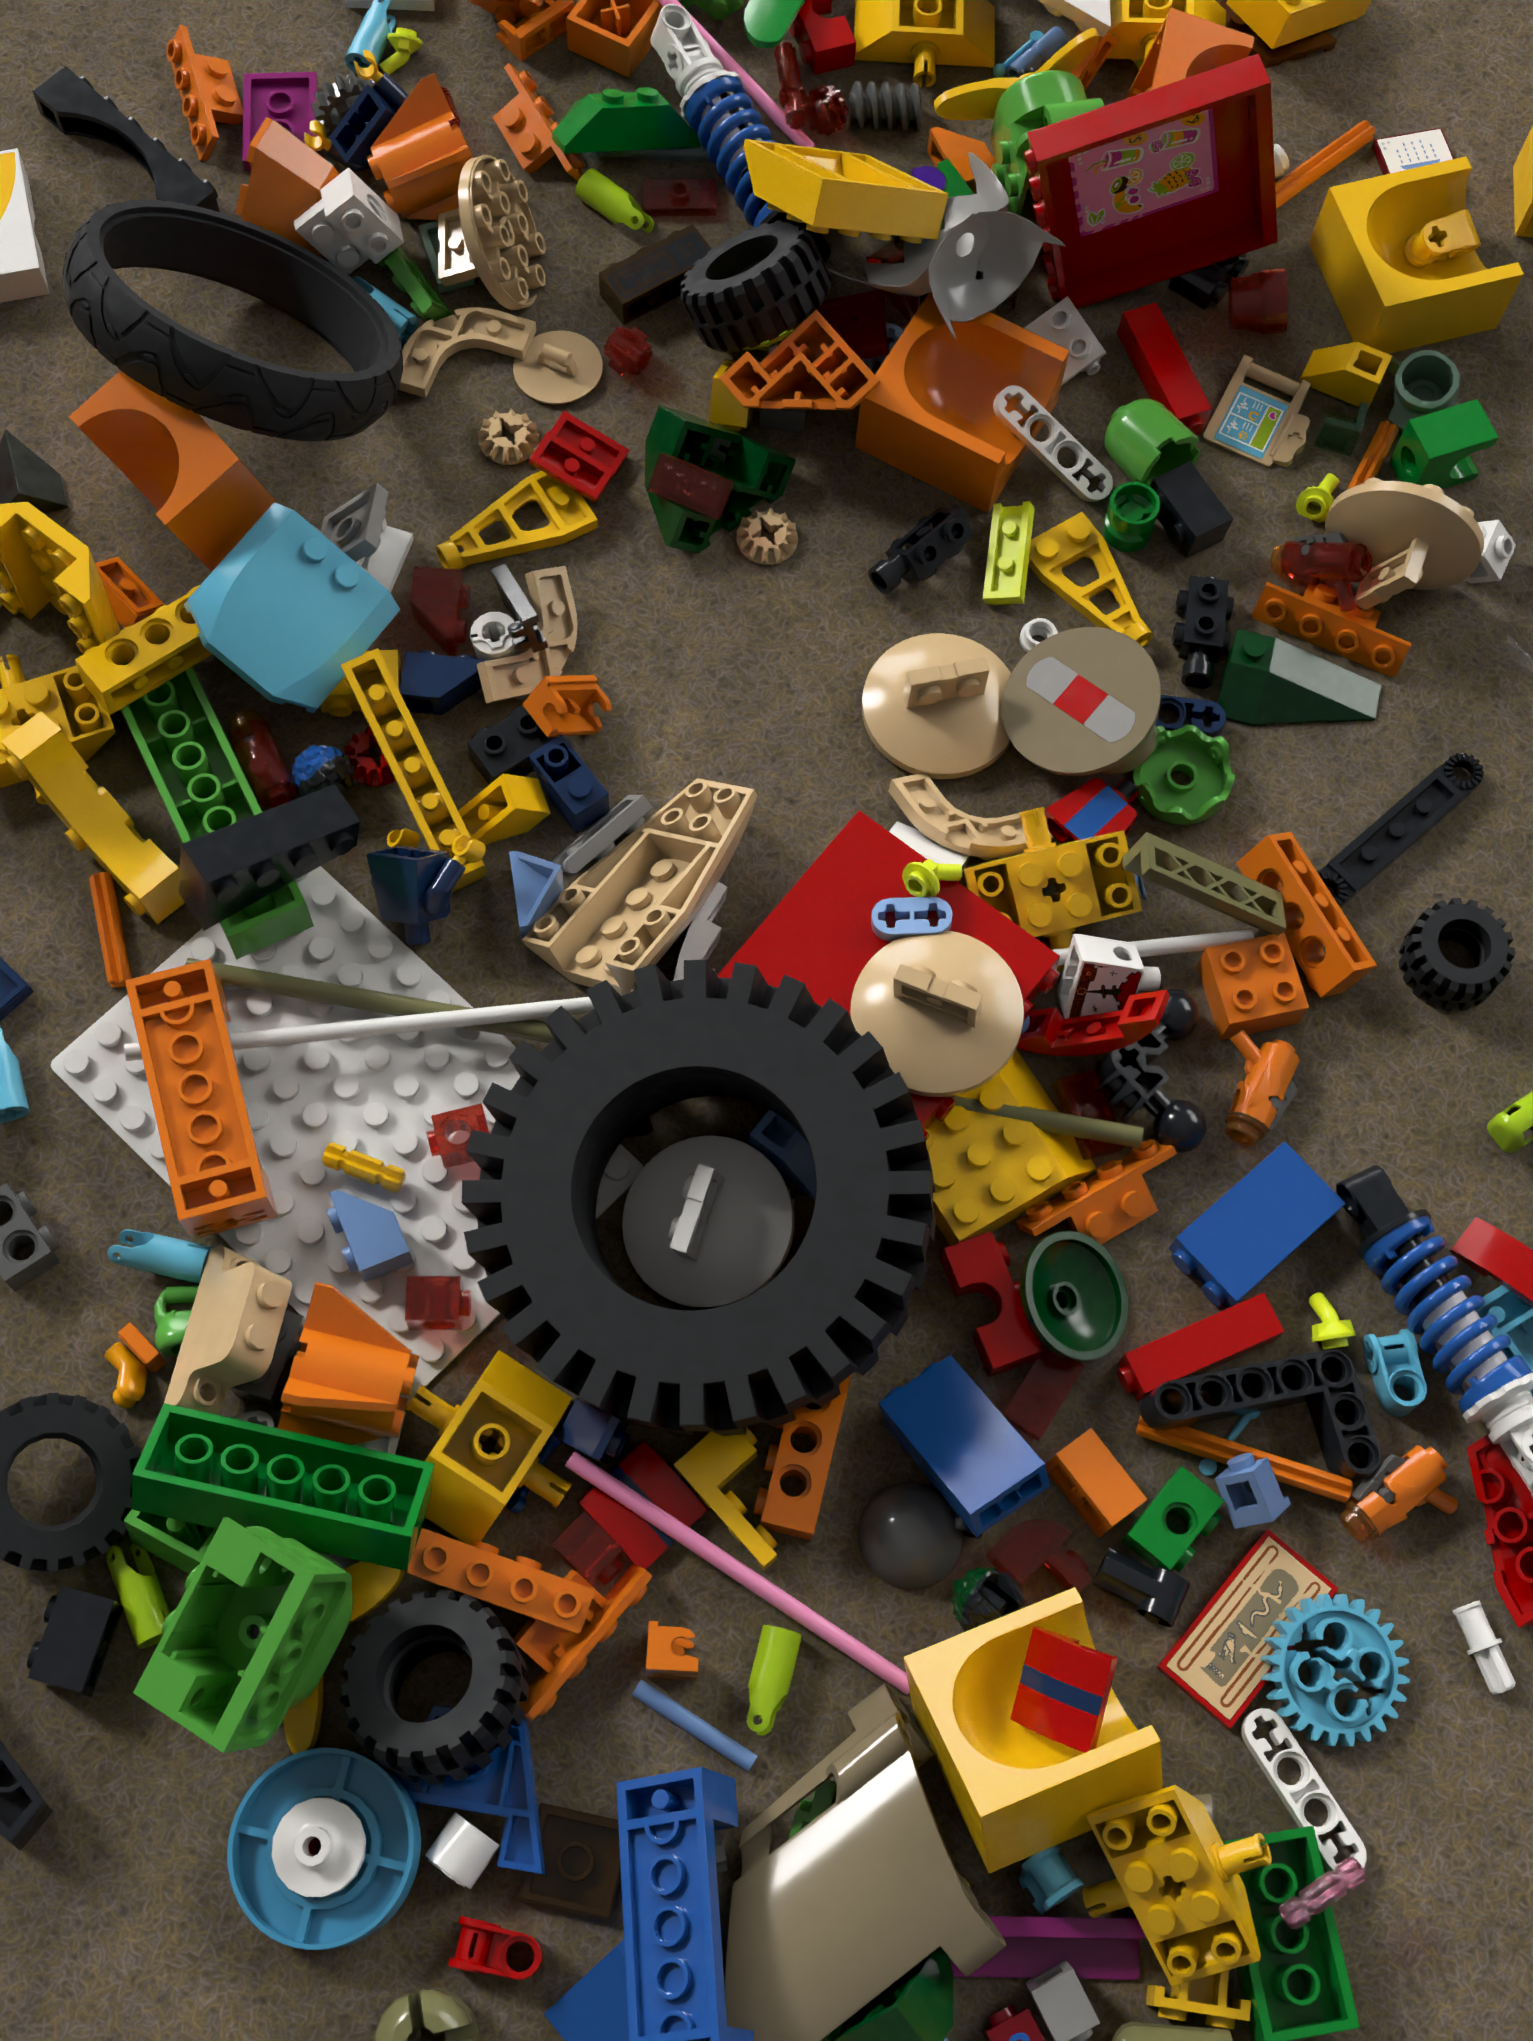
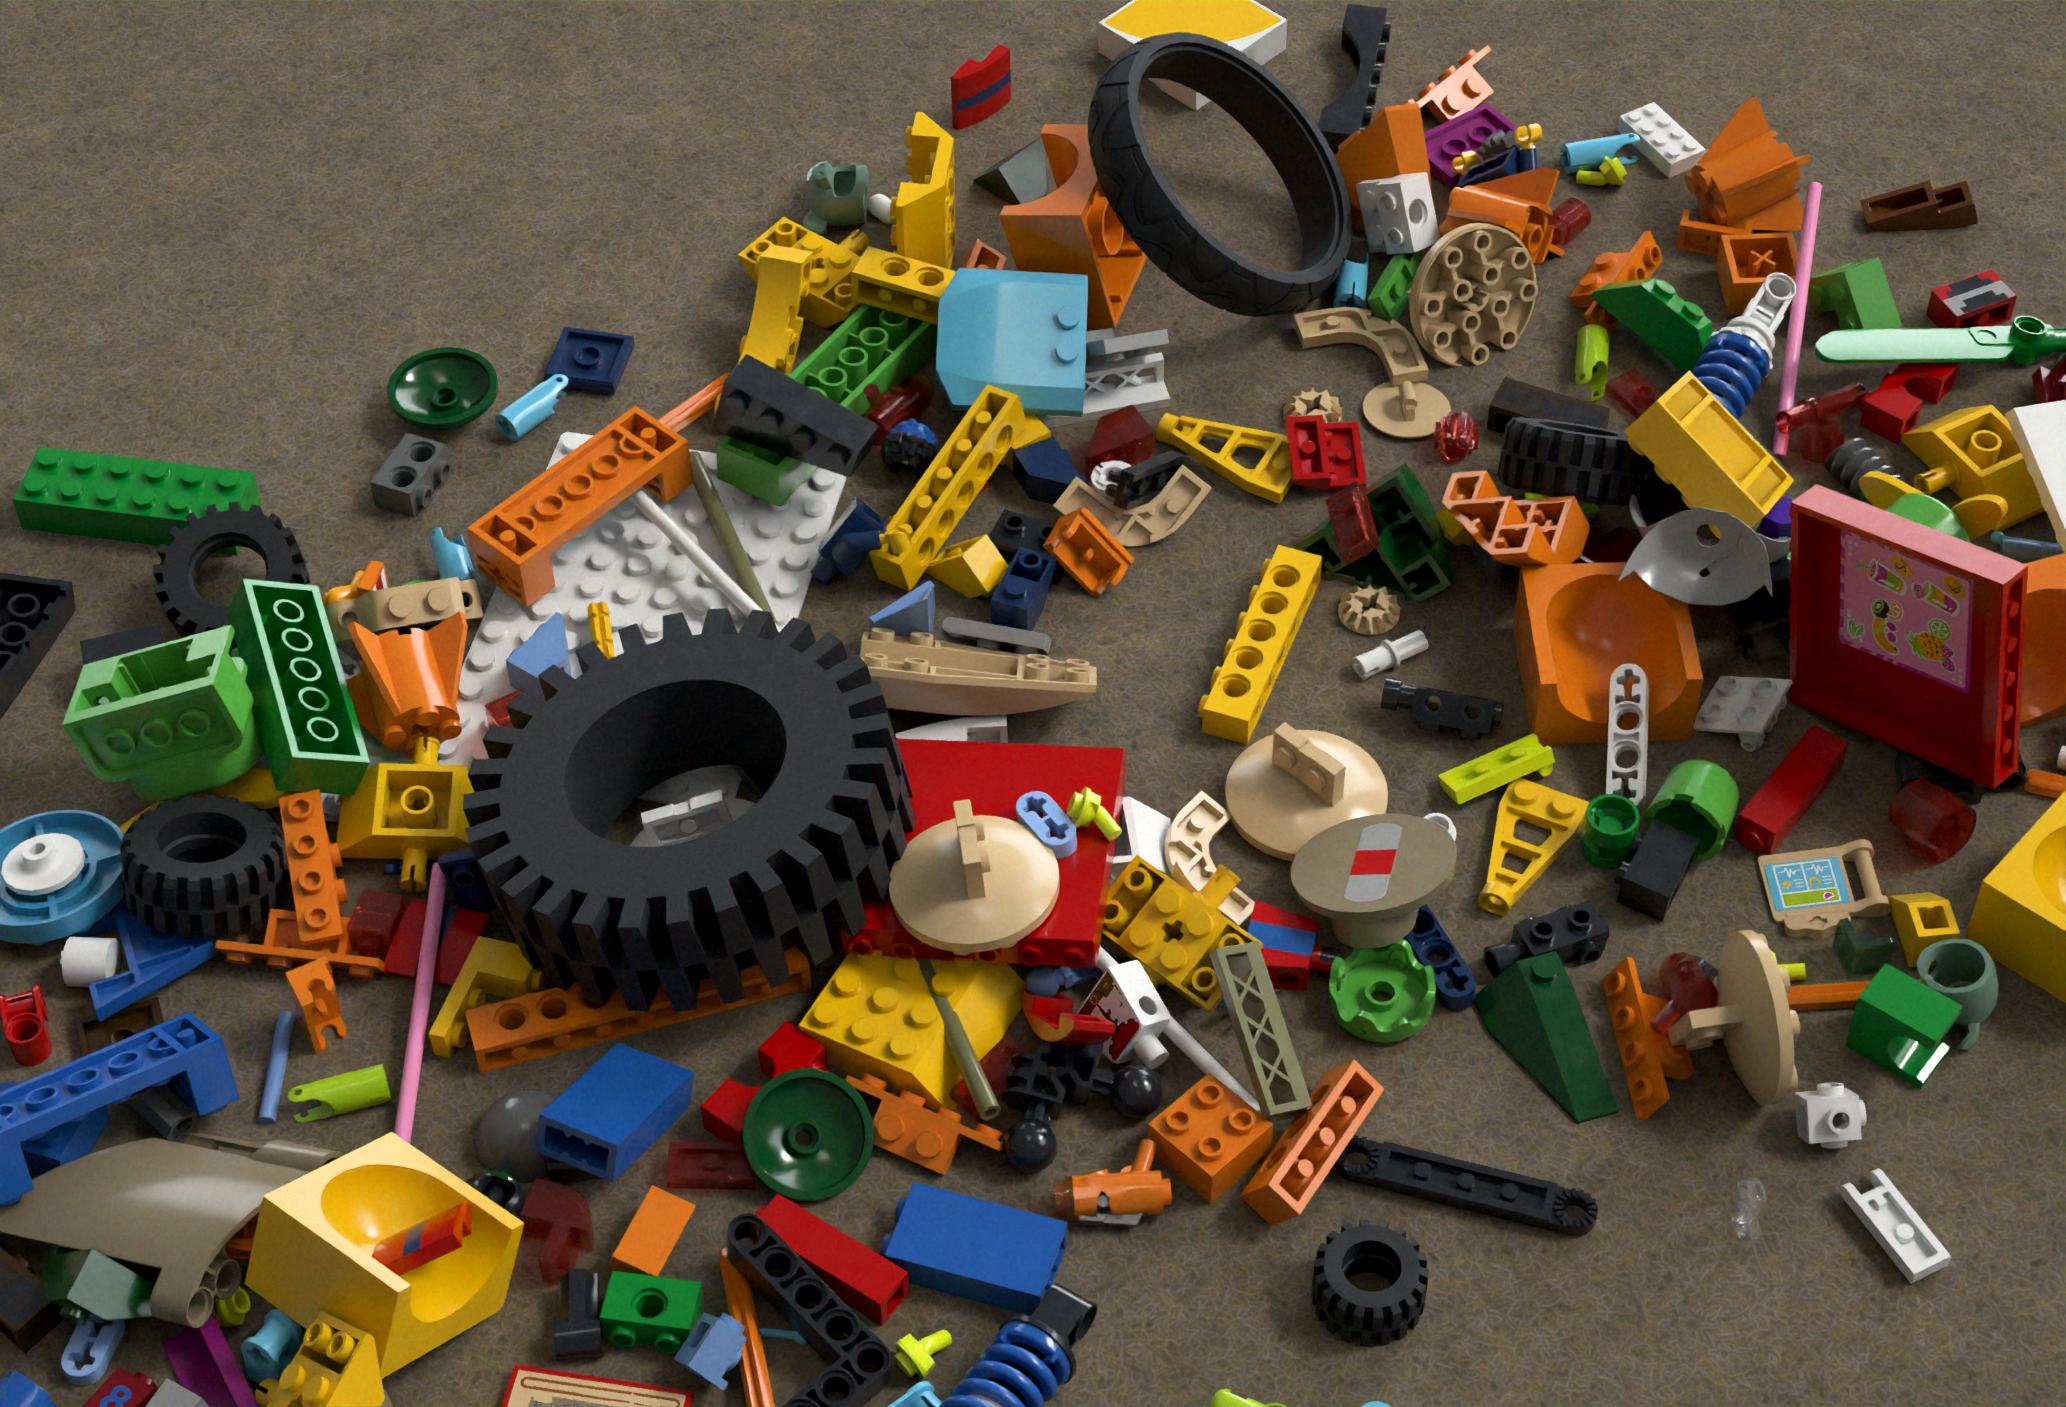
camera: 65 degrees right, 20 degrees down
(704, 562) = (1261, 644): none -> yellow brick
(829, 552) = (1389, 654): none -> white axle

